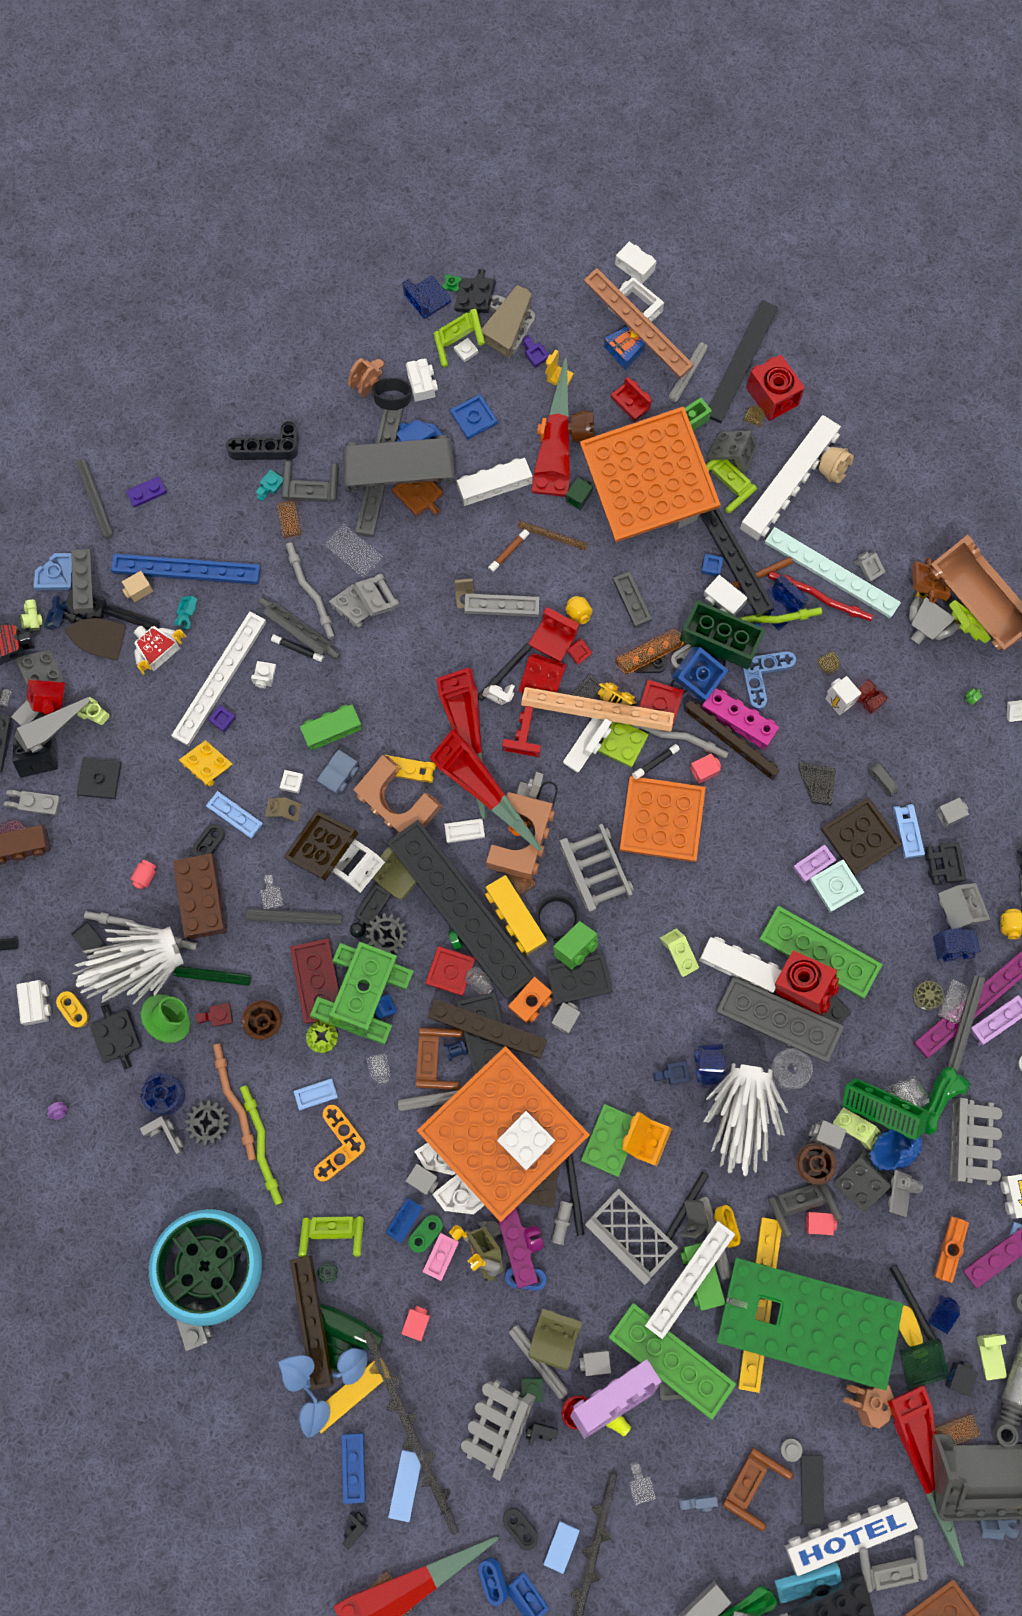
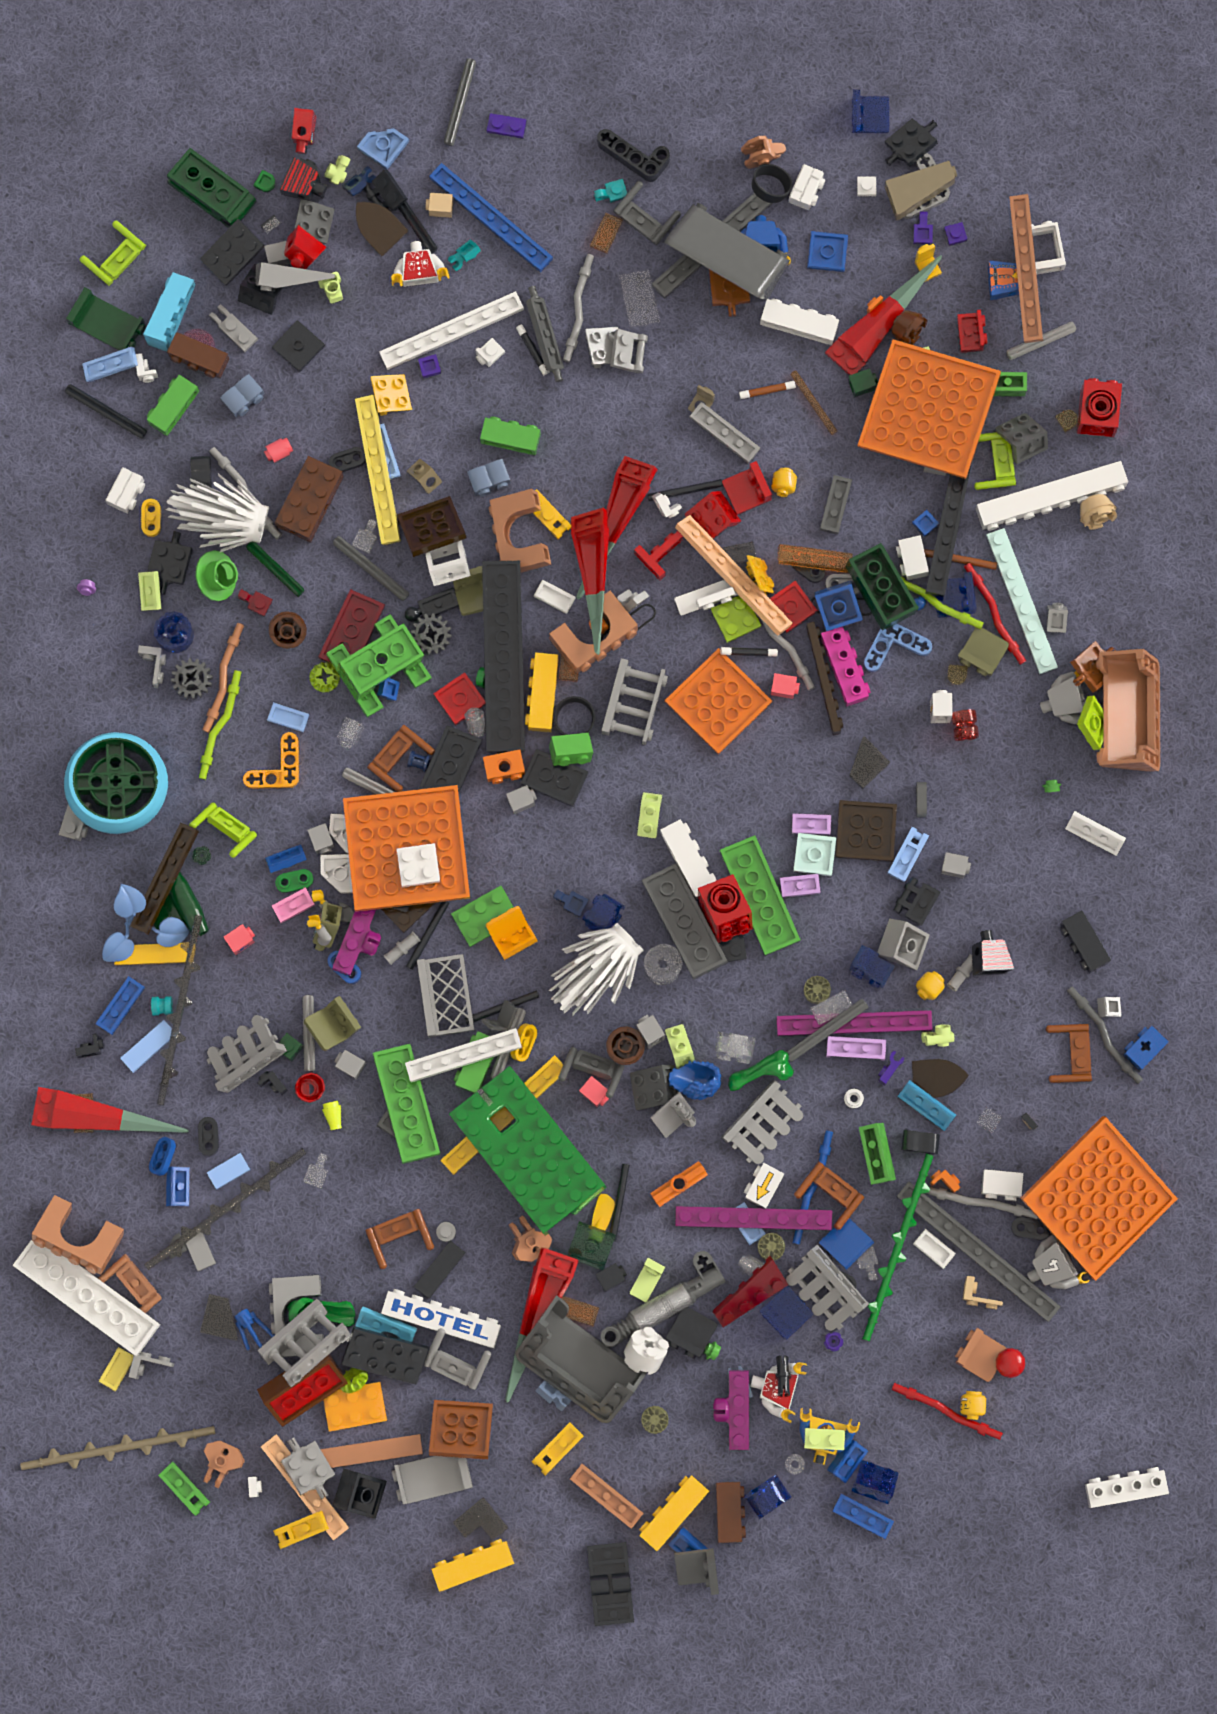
camera: 40 degrees right, 5 degrees up
(24, 901) = (172, 405): none -> bright green brick
(80, 851) = (242, 396): none -> sand blue brick
(82, 581) = (398, 170): dark grey plate -> none
(115, 1073) = (149, 591): none -> yellowish green plate
(240, 831) = (377, 470): none -> light yellow plate
(291, 781) = (447, 458): white plate -> none
(391, 1439) = (161, 1005): none -> teal wheel
(451, 287) = (900, 111): green plate -> none
(456, 330) = (867, 164): lime plate -> none
(487, 1028) = (454, 762): dark brown plate -> none
(561, 339) = (955, 233): none -> dark purple plate
(579, 651) = (758, 516): red tile -> none
(615, 1399) = (344, 1096): lavender wedge -> none
(635, 262) = (1073, 209): white brick -> none
(704, 1502) = (353, 1218): sand blue plate -> none
(742, 361) = (1095, 363): black tile -> none
(836, 630) = (983, 651): none -> olive bracket
(845, 919) = (800, 885): none -> lavender plate
(885, 1108) = (708, 1043): green brick -> none
(945, 1314) = (636, 1225): clear blue bracket -> none

